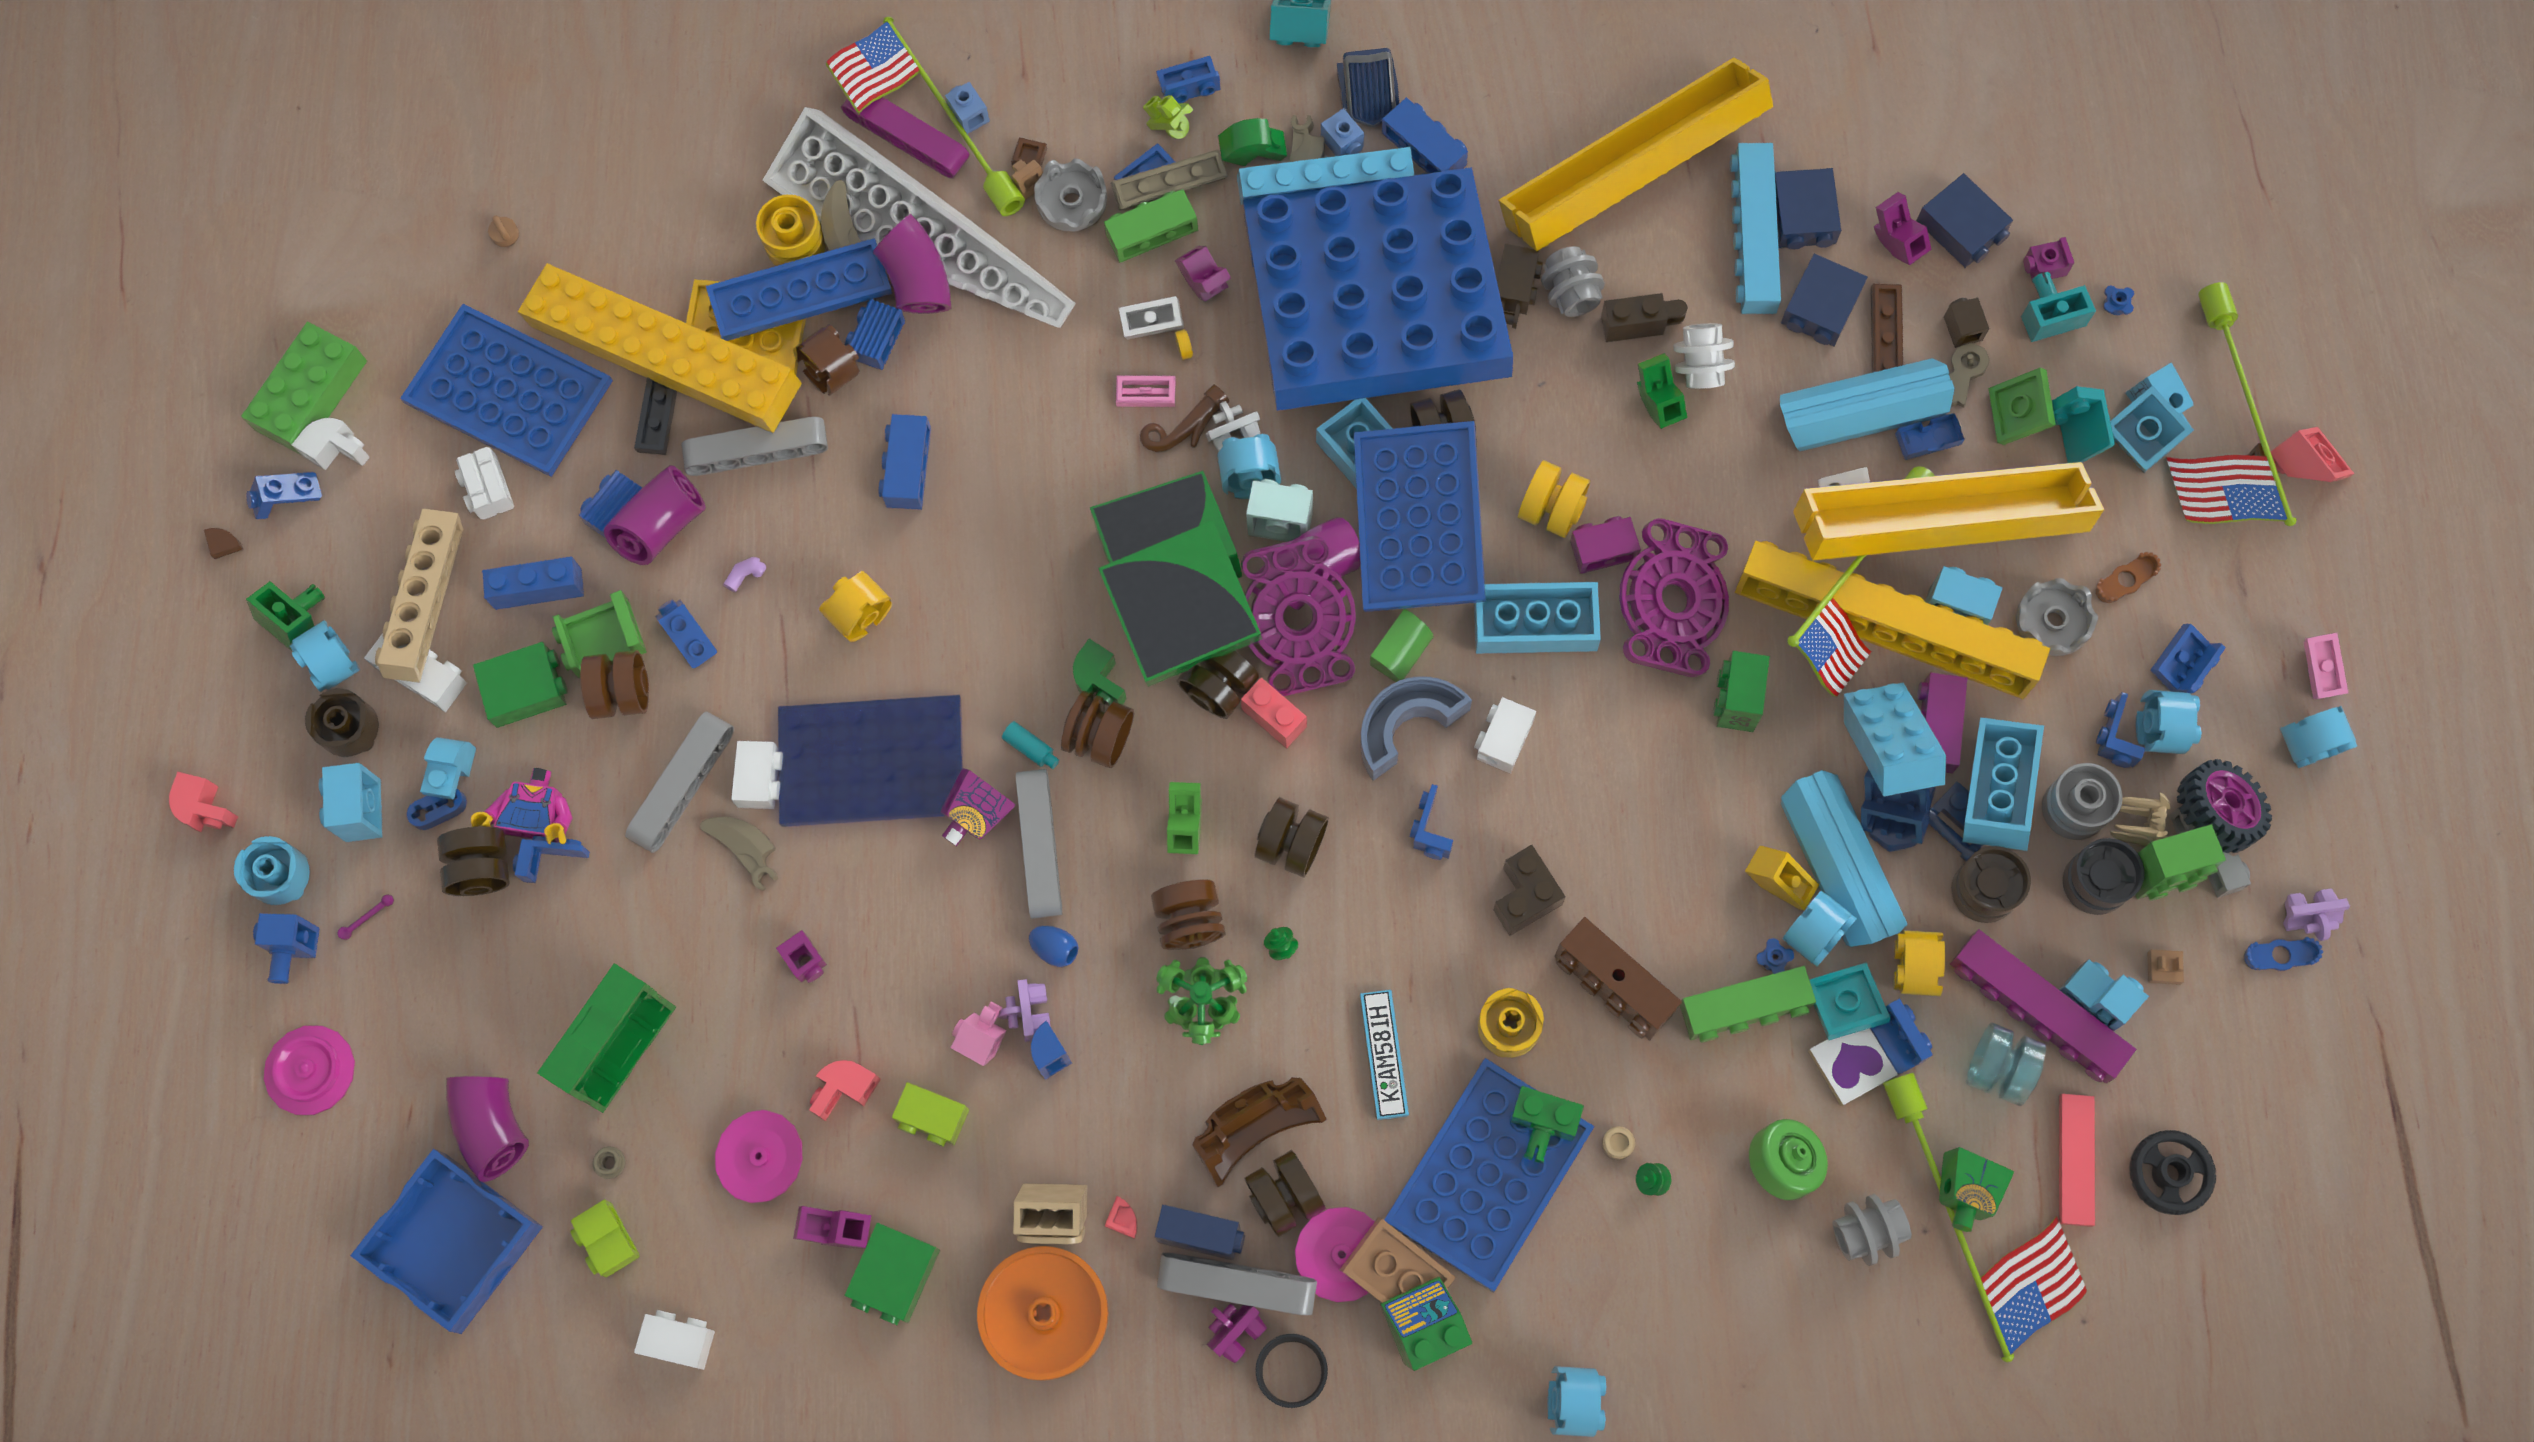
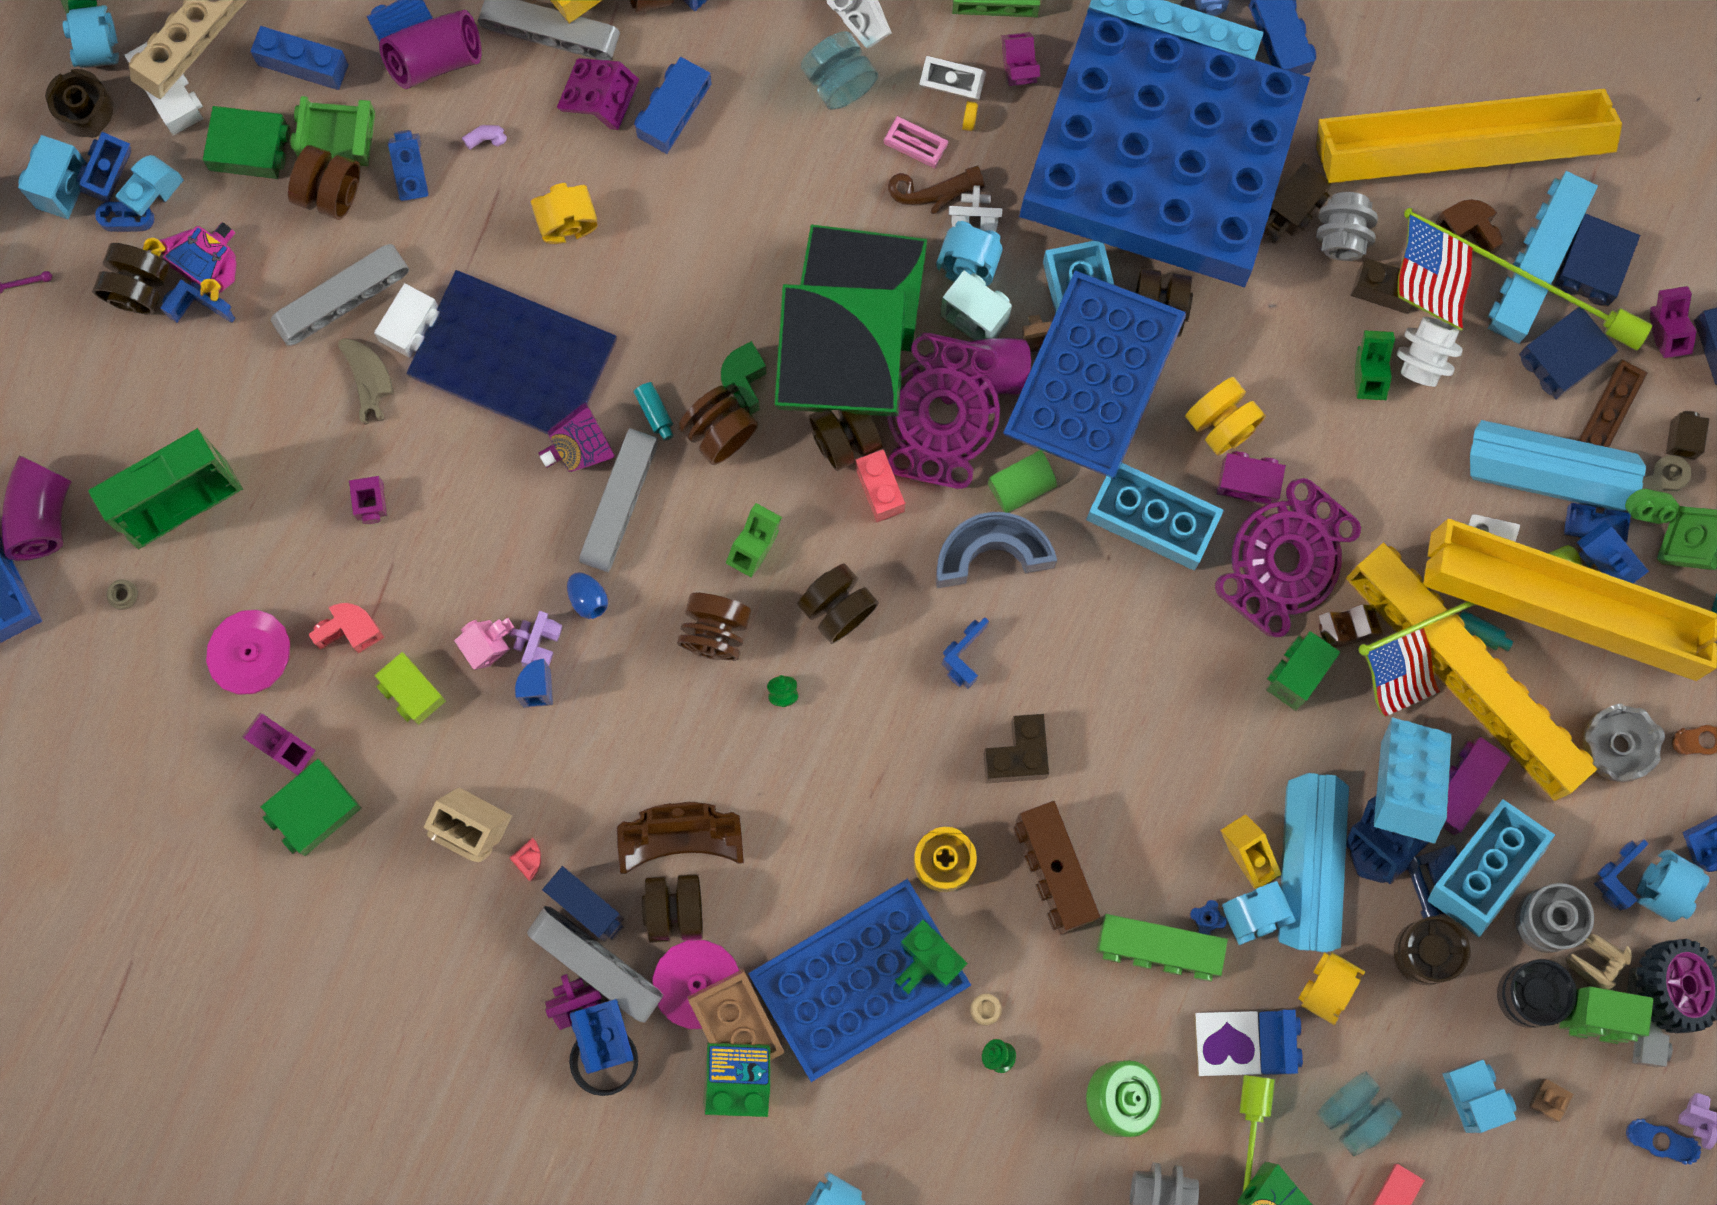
camera: 20 degrees right, 5 degrees up
(395, 771) = (104, 167): none -> blue brick
(604, 1239) = (86, 657): lime brick -> none
(675, 1341) = (103, 773): white brick -> none
(830, 480) = (599, 90): none -> magenta bracket
(1042, 1313) = (418, 905): orange dish -> none
(1044, 358) = (839, 70): none -> clear light blue wheel
(1202, 980) = (688, 701): bright green plant -> none
(1279, 1347) = (601, 1036): none -> blue bracket
(1345, 506) = (1035, 332): none -> medium nougat tile
(1384, 1055) = (822, 831): tile -> none
(1505, 734) = (1073, 604): white brick -> none
(1677, 286) = (1438, 275): none -> flag
(1680, 223) = (1473, 218): none -> reddish brown brick
(1762, 631) = (1349, 626): none -> reddish brown brick
(1848, 1001) = (1250, 989): teal plate -> none
(1887, 576) = (1491, 635): none -> teal cylinder
(1956, 455) = (1610, 554): none -> blue brick
(1964, 594) = (1547, 682): medium azure brick -> none
(1969, 397) = (1652, 506): none -> bright green plate
(2042, 1007) = (1420, 1080): magenta brick -> none

